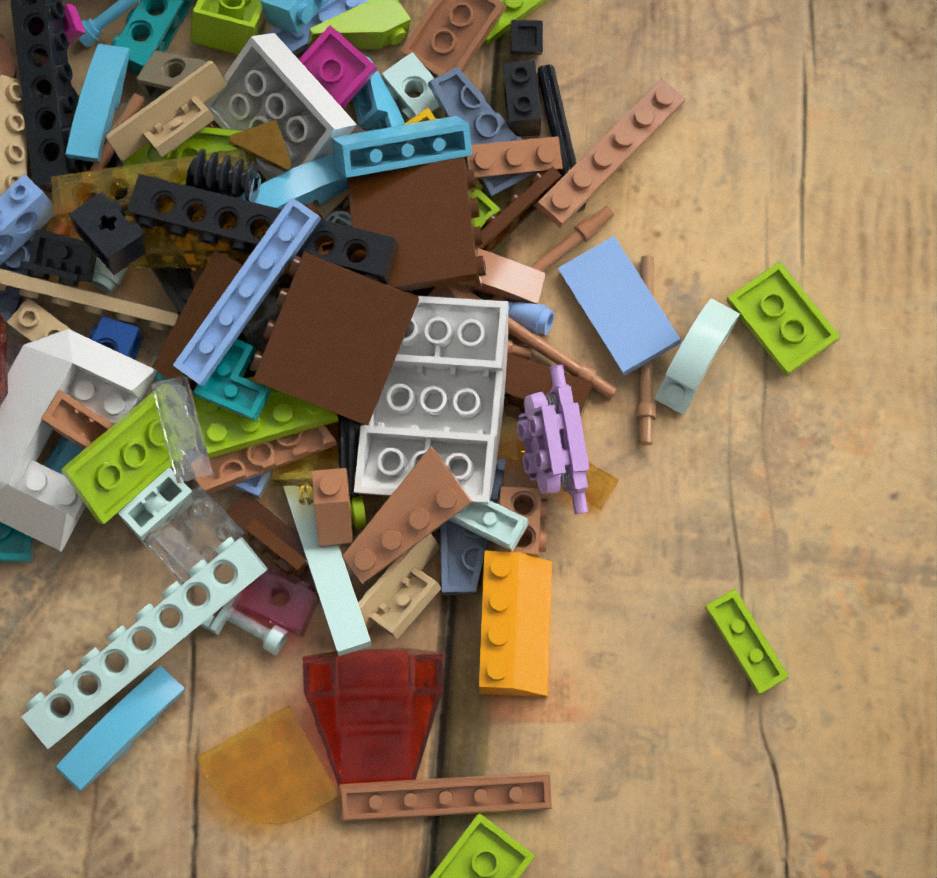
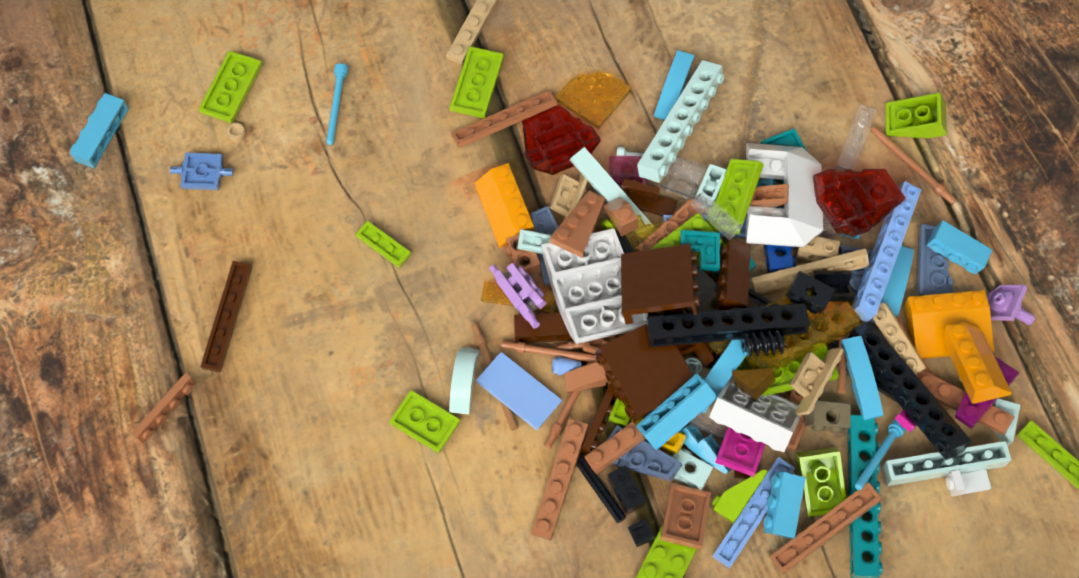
camera: 160 degrees right, 5 degrees down
(247, 291) = (715, 283): light blue plate -> none

